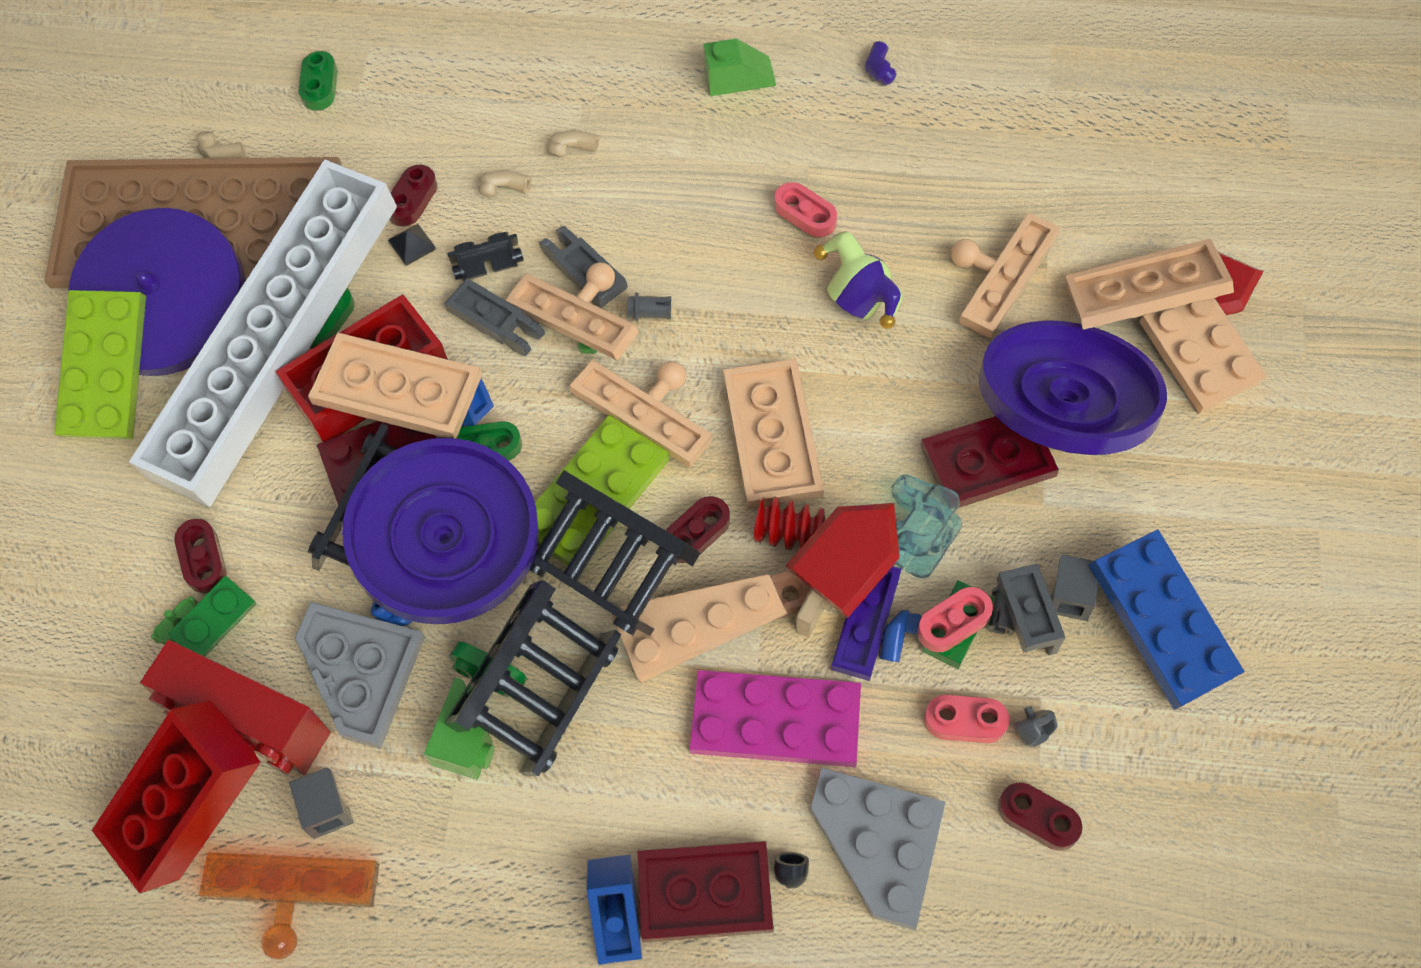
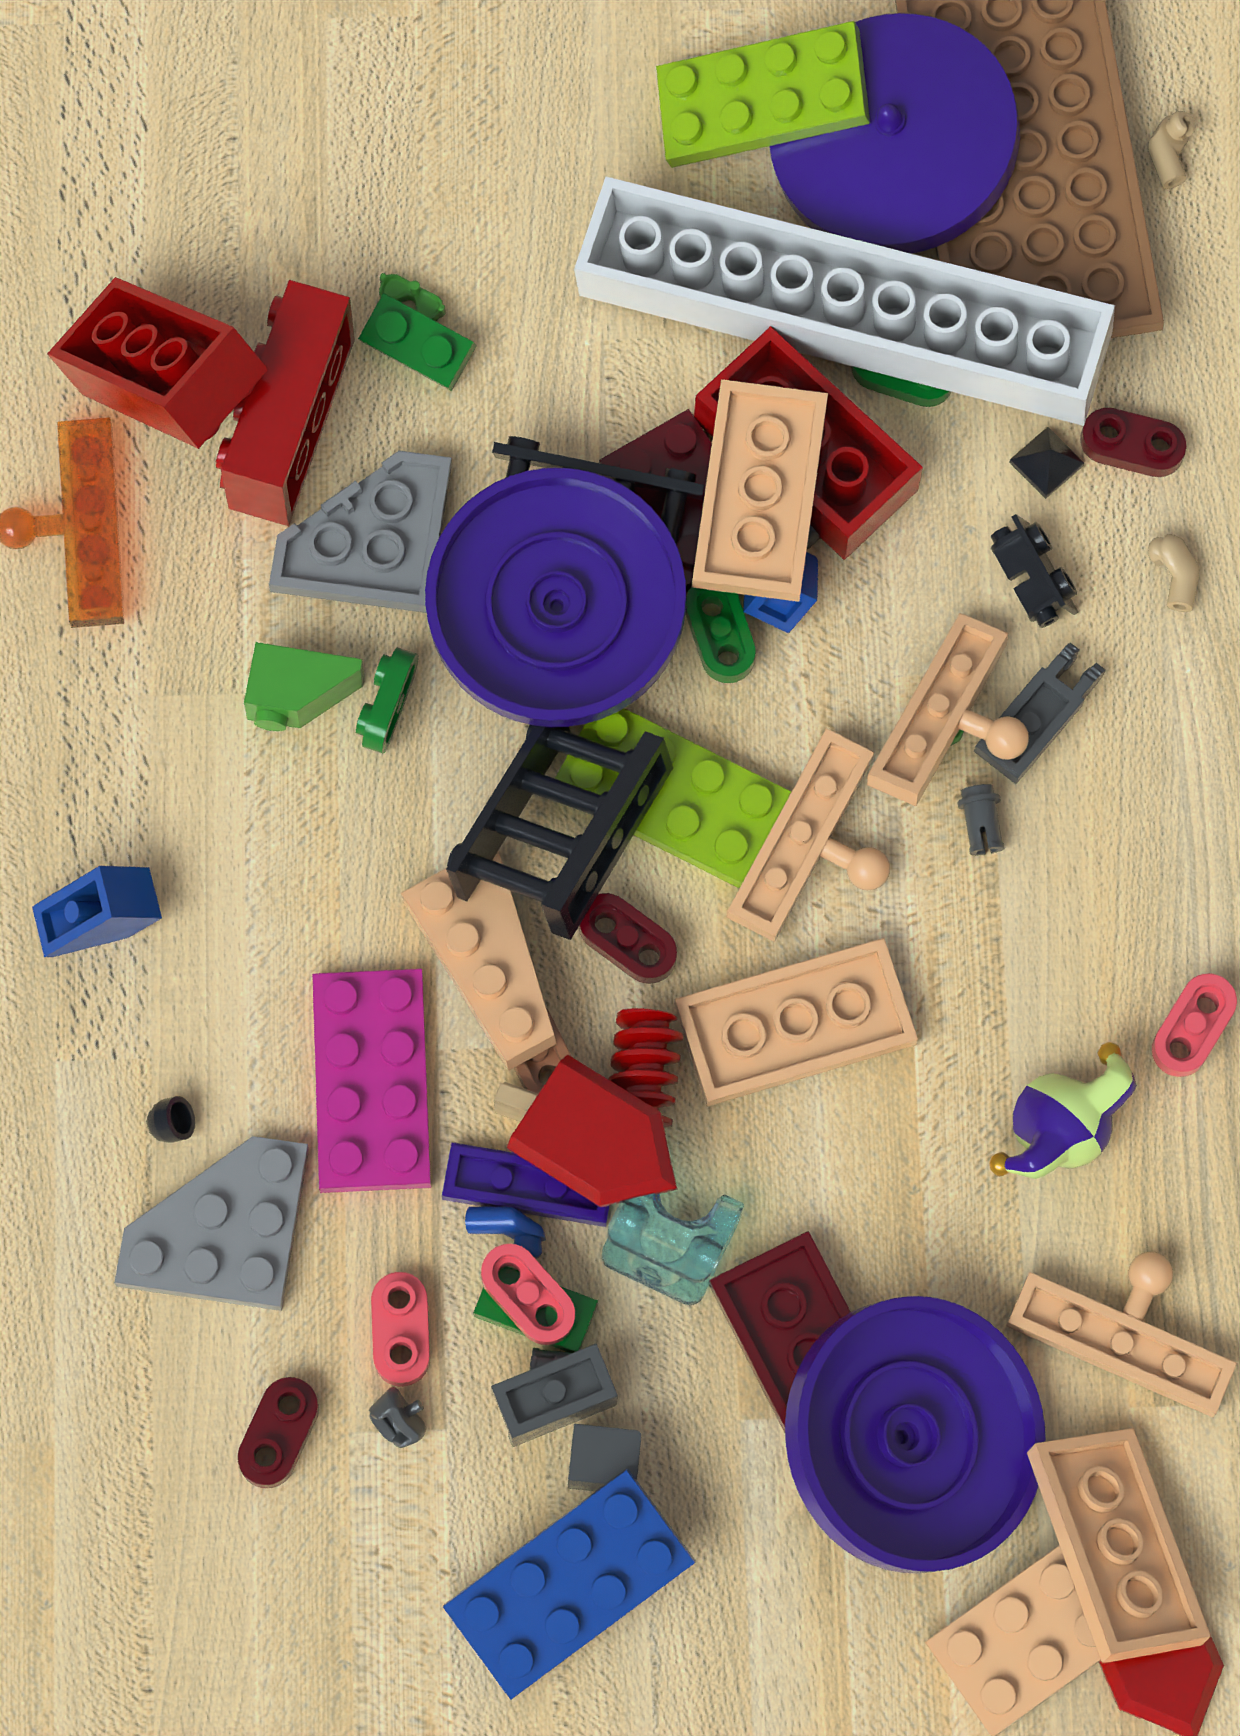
camera: 75 degrees right, 10 degrees up
(202, 558) = (499, 301): dark red plate -> none
(320, 803) = (183, 532): dark grey panel -> none
(493, 316) = (934, 598): dark grey hinge -> none
(494, 676) = (411, 723): black fence -> none
(704, 891) = (130, 1018): dark red plate -> none

